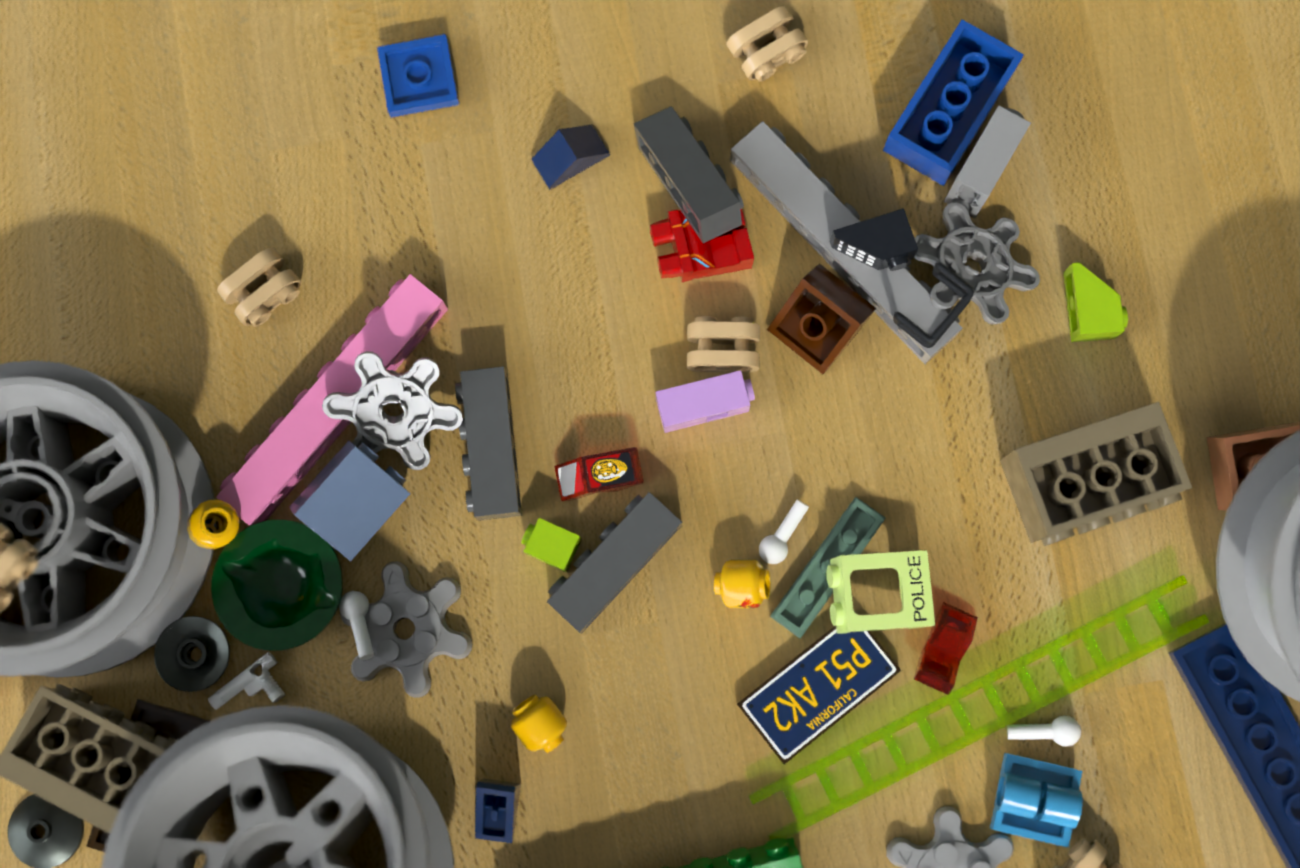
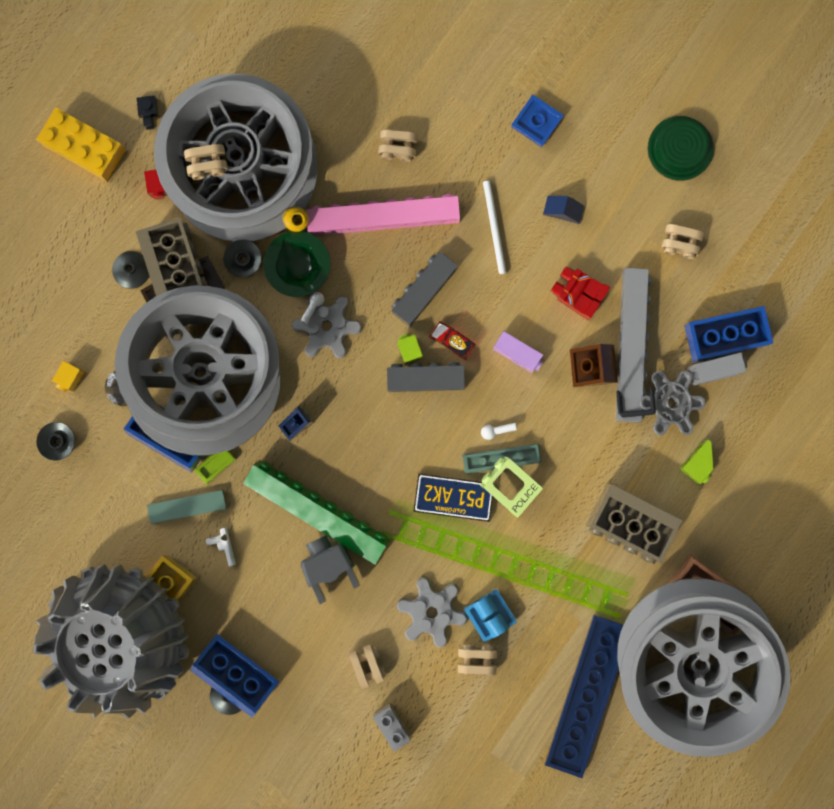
camera: 45 degrees right, 5 degrees up
(250, 683) = (252, 290): white hose -> none
(350, 499) = (353, 259): sand blue brick -> none
(384, 386) = (389, 244): plate -> none
(502, 268) = (494, 227): none -> white piece
(539, 723) = (340, 408): yellow head -> none
(689, 174) = (598, 261): dark grey brick -> none
(738, 332) = (547, 328): tan brick -> none
(742, 583) = (464, 433): yellow head -> none
(878, 241) = (643, 358): black slope -> none
(945, 648) = (513, 530): clear red slope -> none
(1063, 731) = (525, 601): white bar -> none

